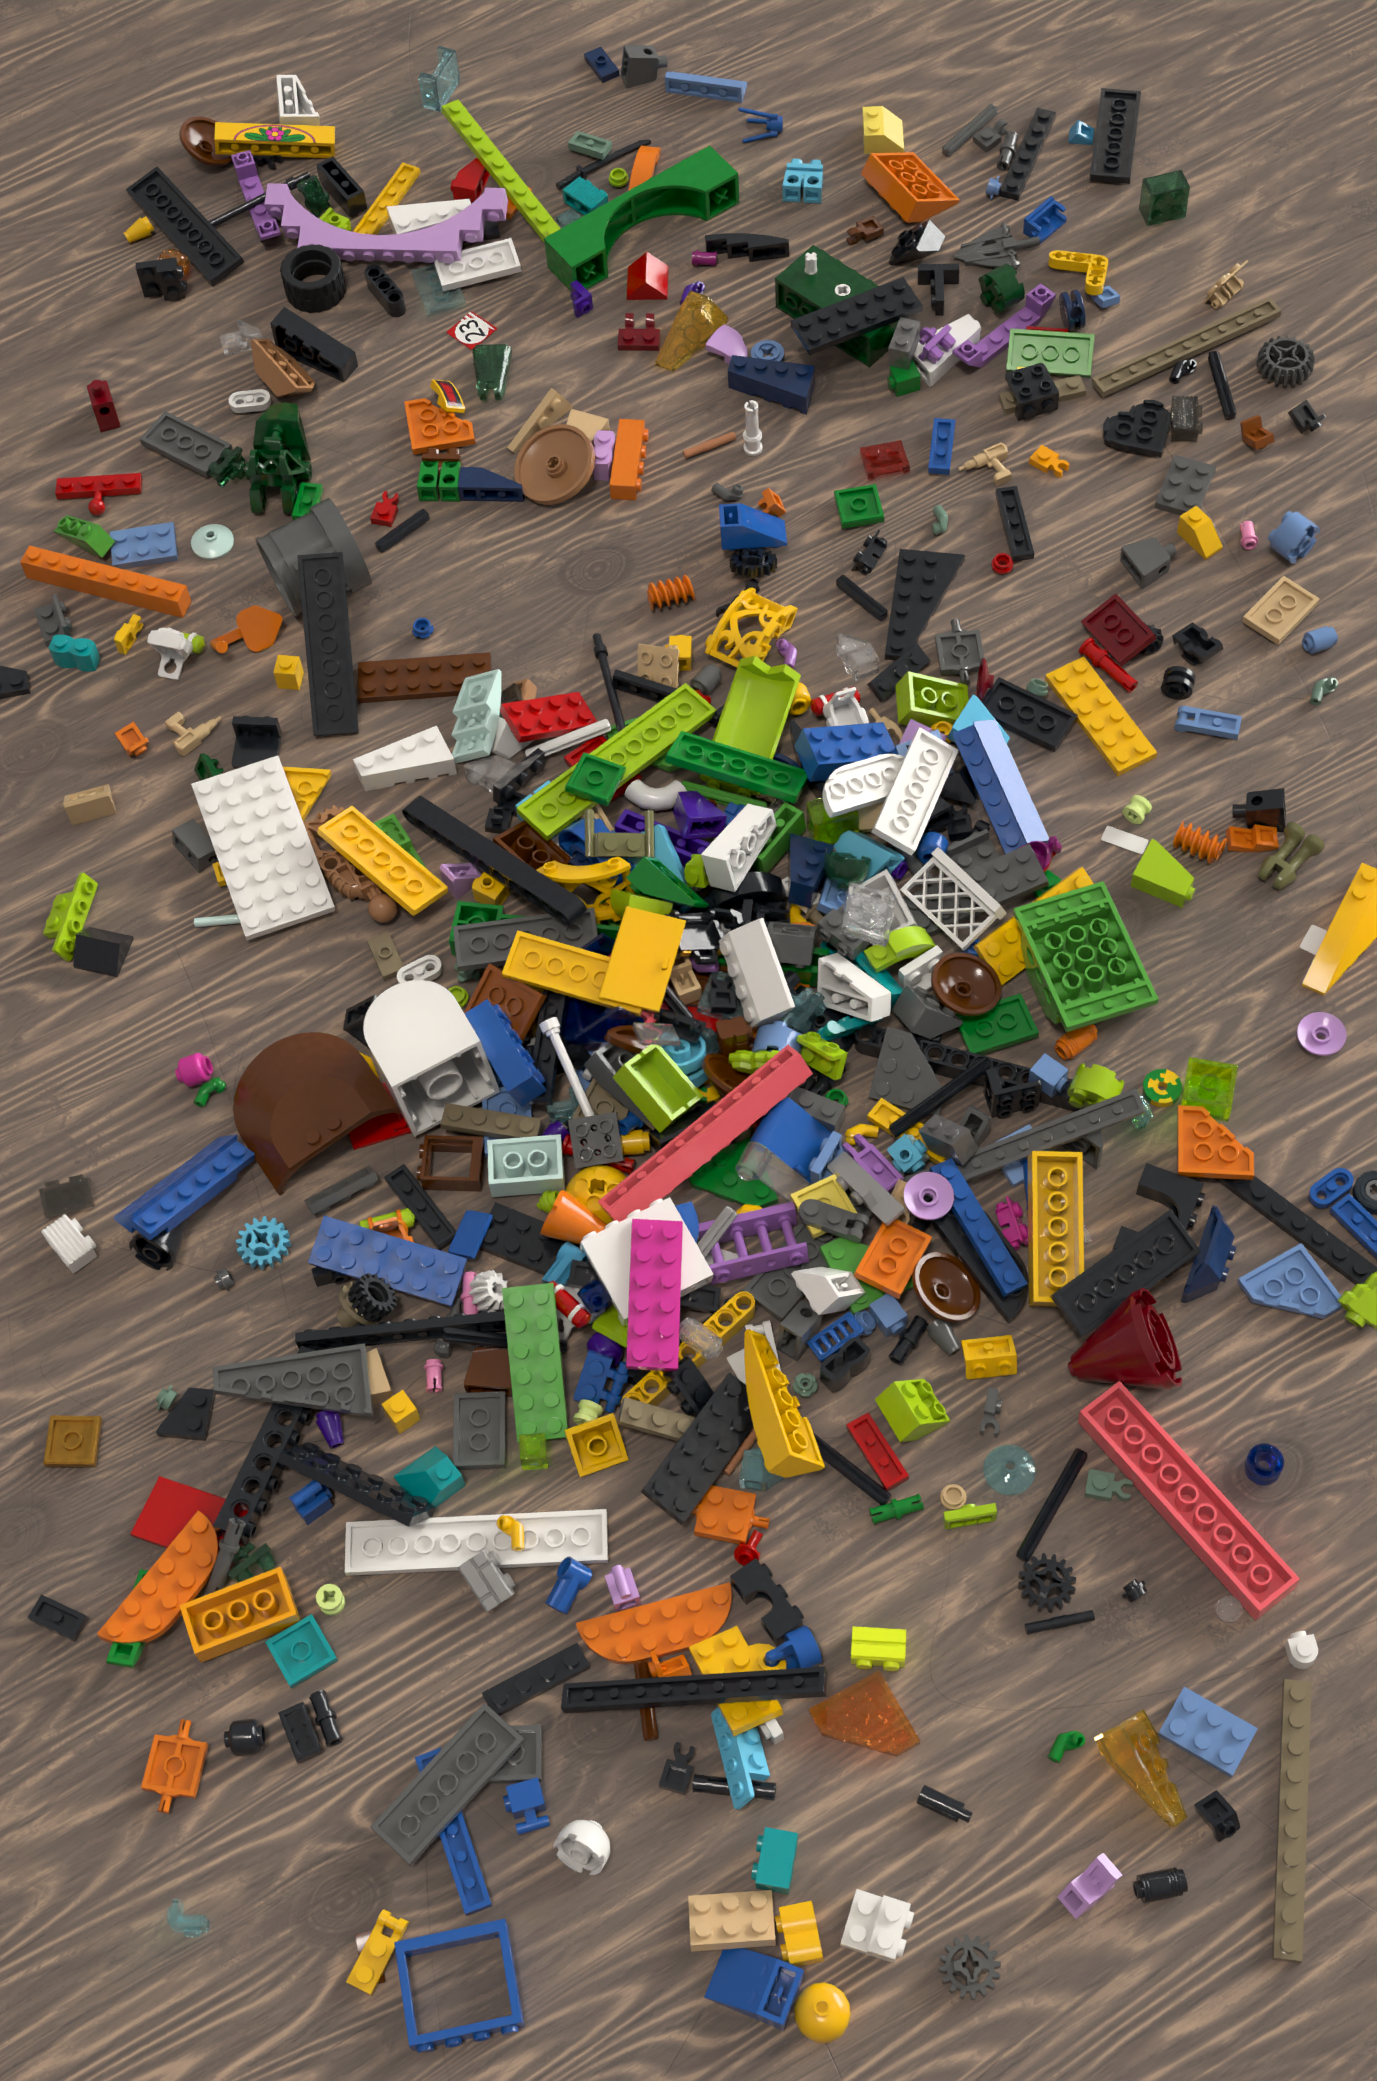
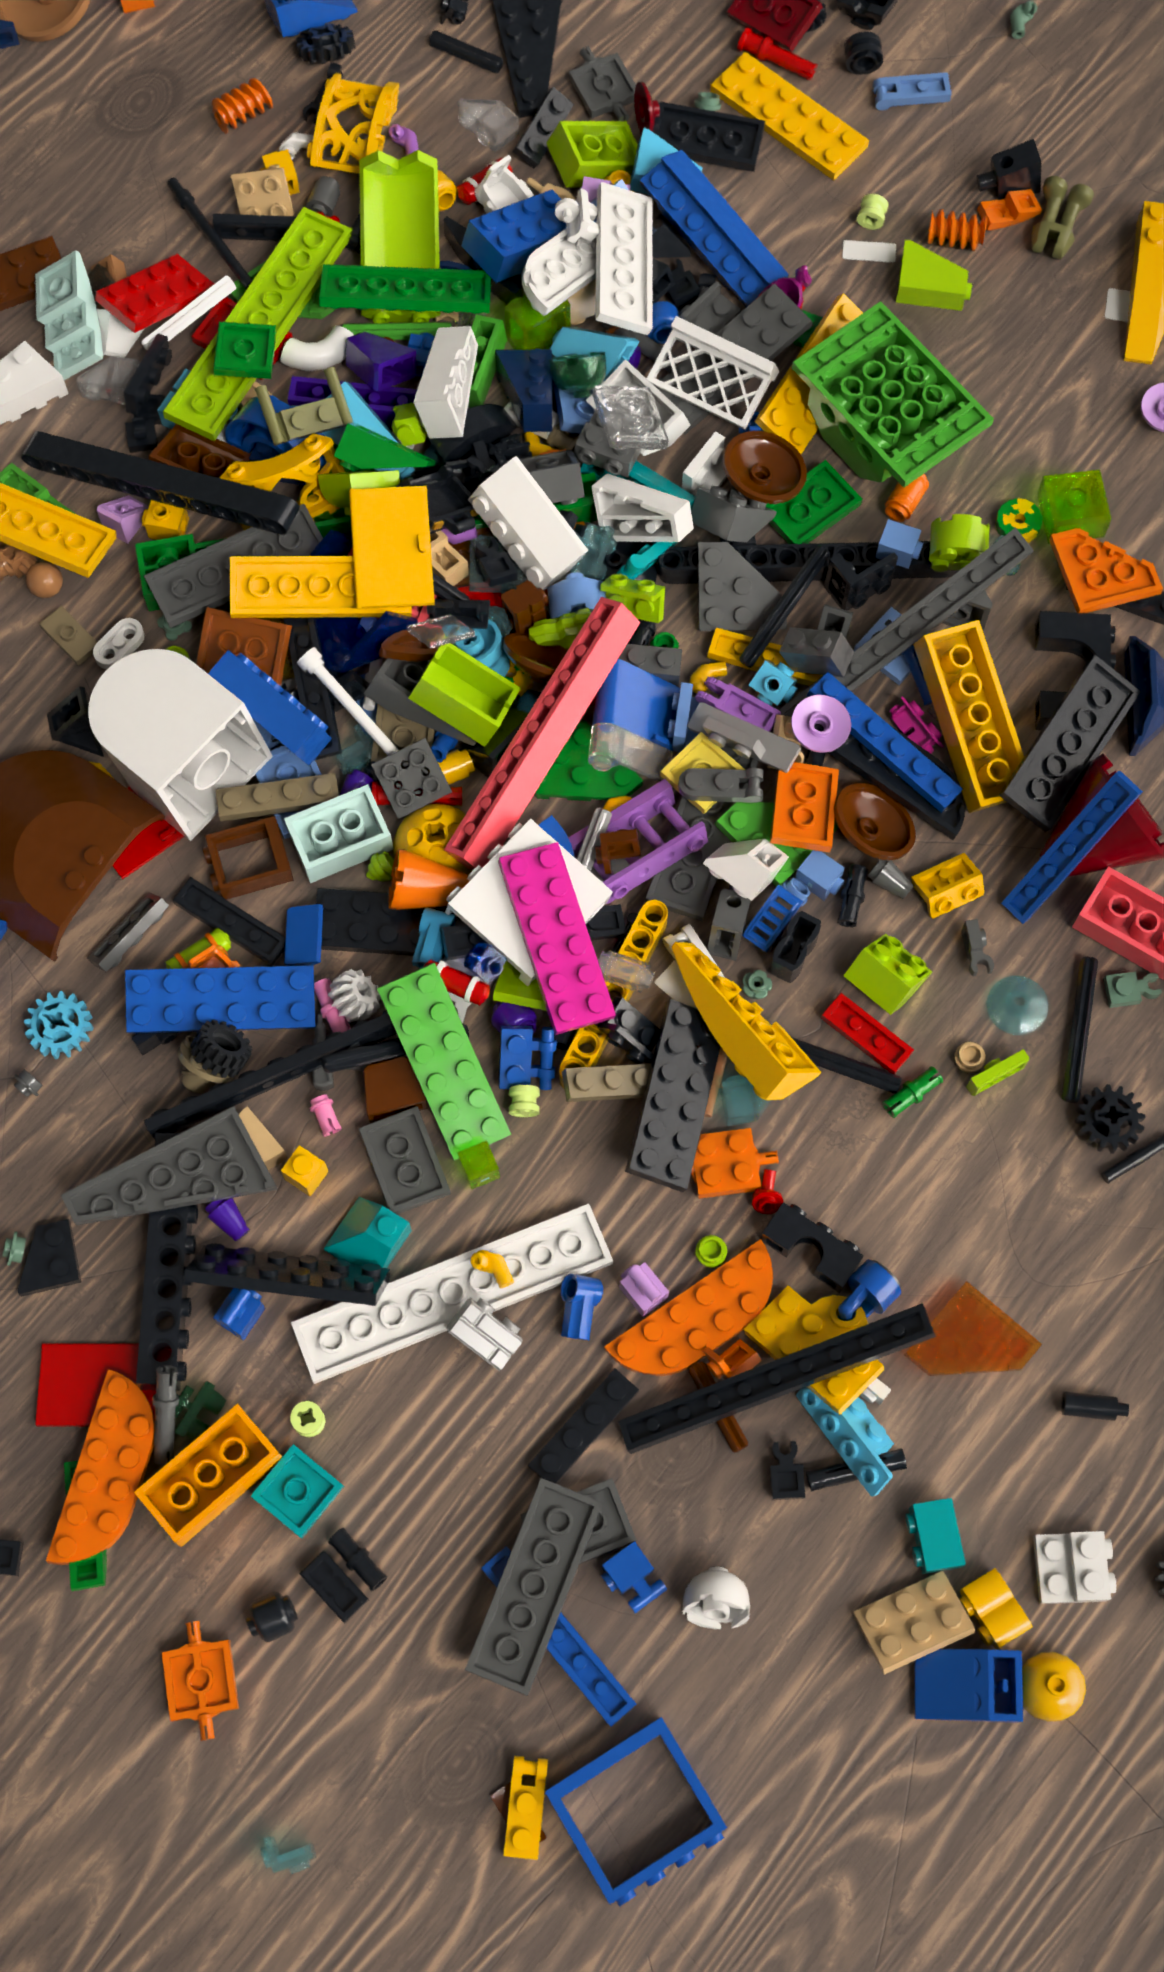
camera: 25 degrees left, 10 degrees up
(596, 1445) = (548, 1133): yellow slope -> none
(687, 1579) = (711, 1251): none -> lime plate
(700, 632) = (295, 142): none -> white arm
(731, 1240) = (617, 845): none -> reddish brown bracket
(878, 1648) = (955, 1255): neon yellow brick -> none
(890, 749) = (578, 217): none -> white hips
(902, 944) = (685, 440): lime arch -> none
(1089, 1354) = (1072, 846): none -> blue plate

